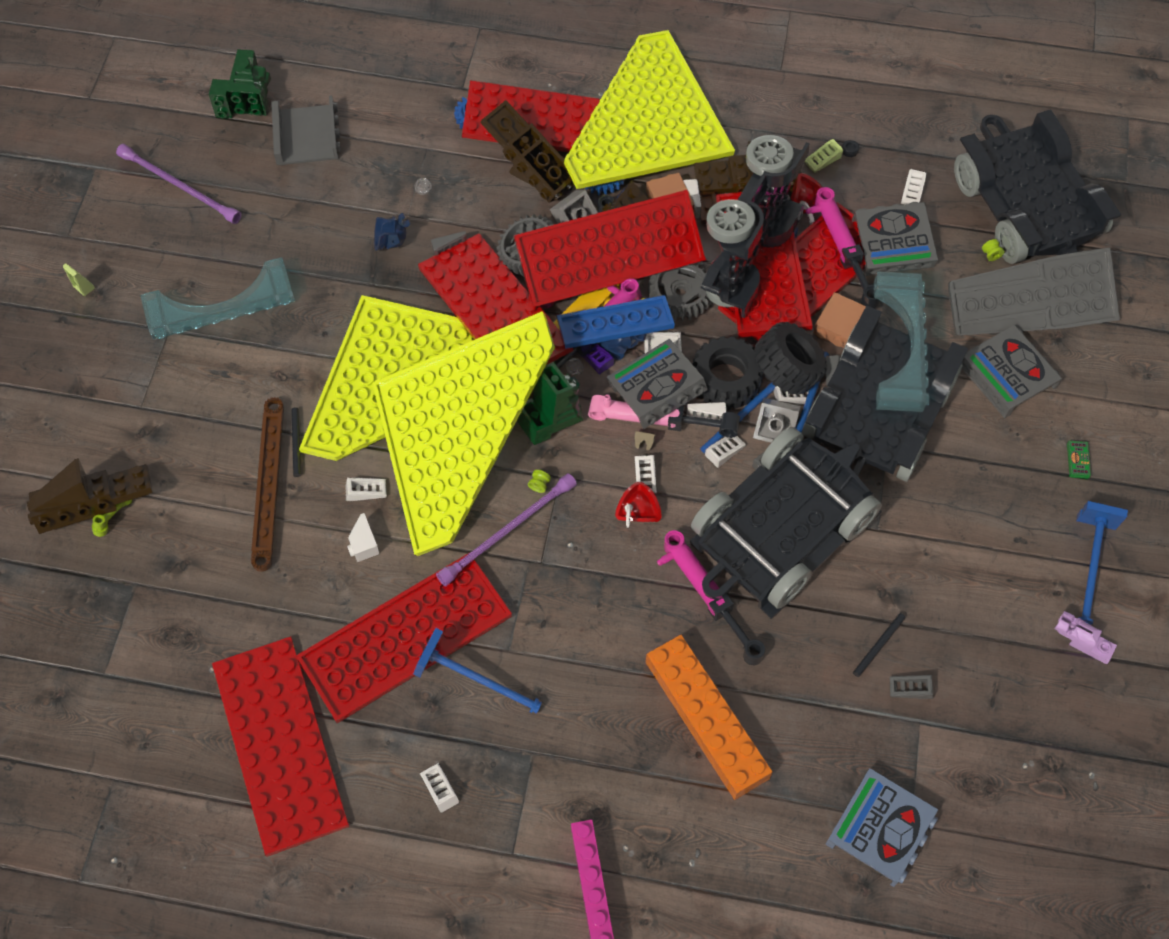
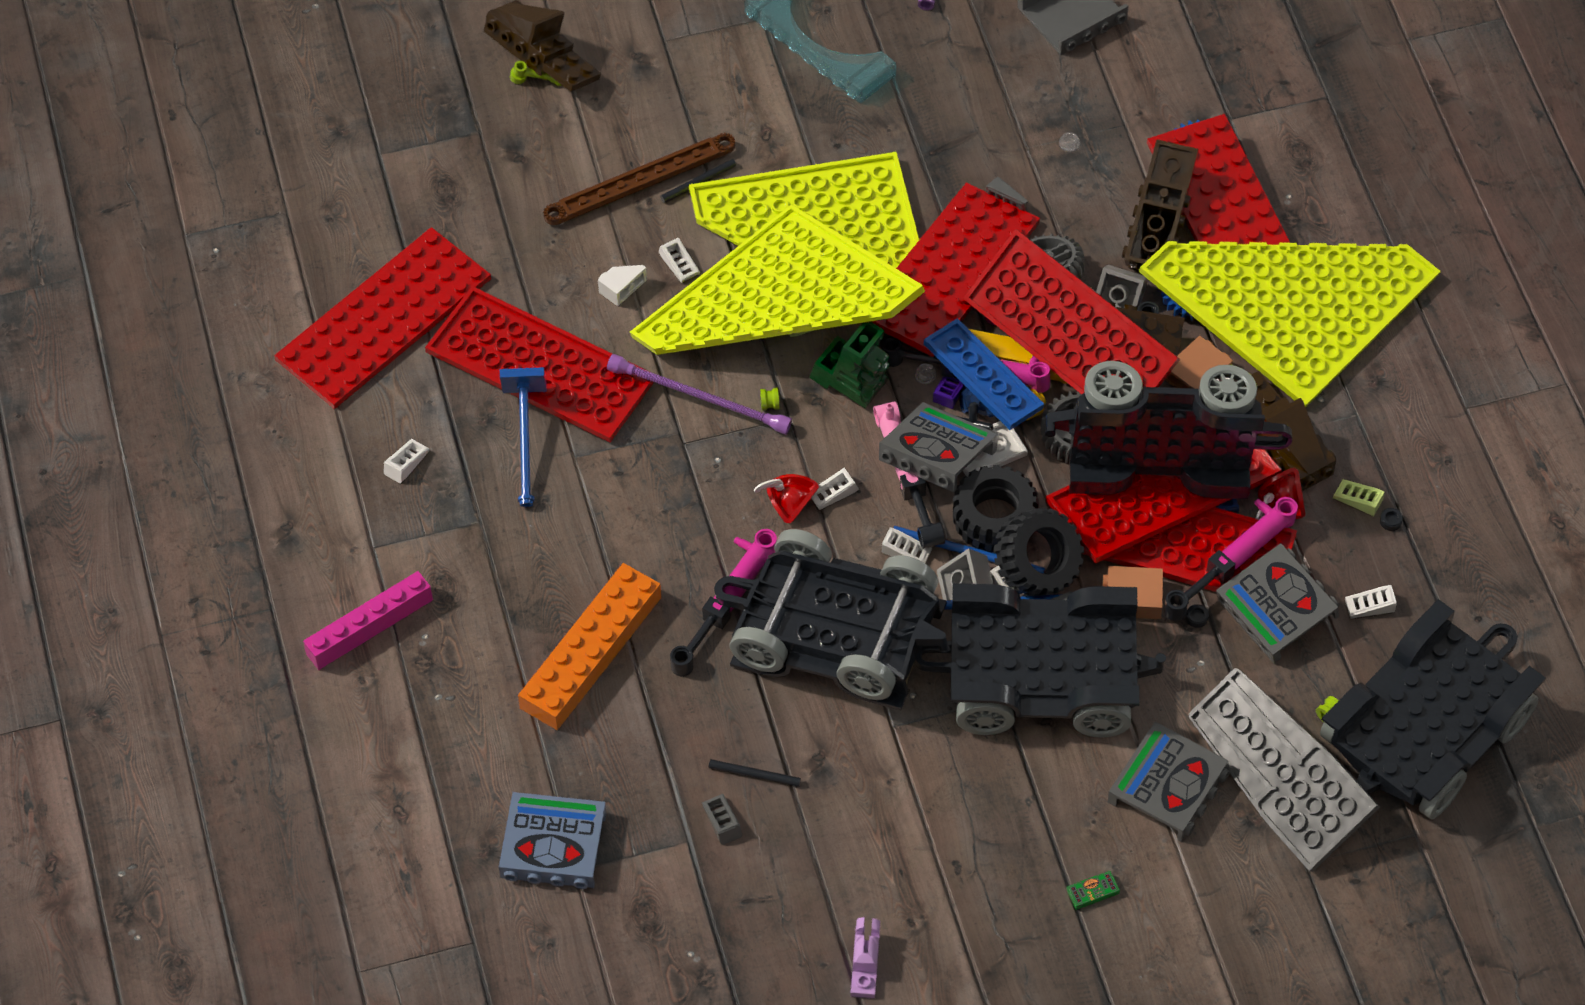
camera: 65 degrees right, 5 degrees down
(390, 232) = (985, 142): dark blue helmet -> none
(637, 353) = (973, 417): none -> black piece
(648, 437) = (875, 468): dark tan tile -> none
(706, 410) = (941, 512): white slope -> none
(908, 387) = (1058, 666): clear light blue arch -> none
(1102, 517) = (1016, 925): blue tile -> none

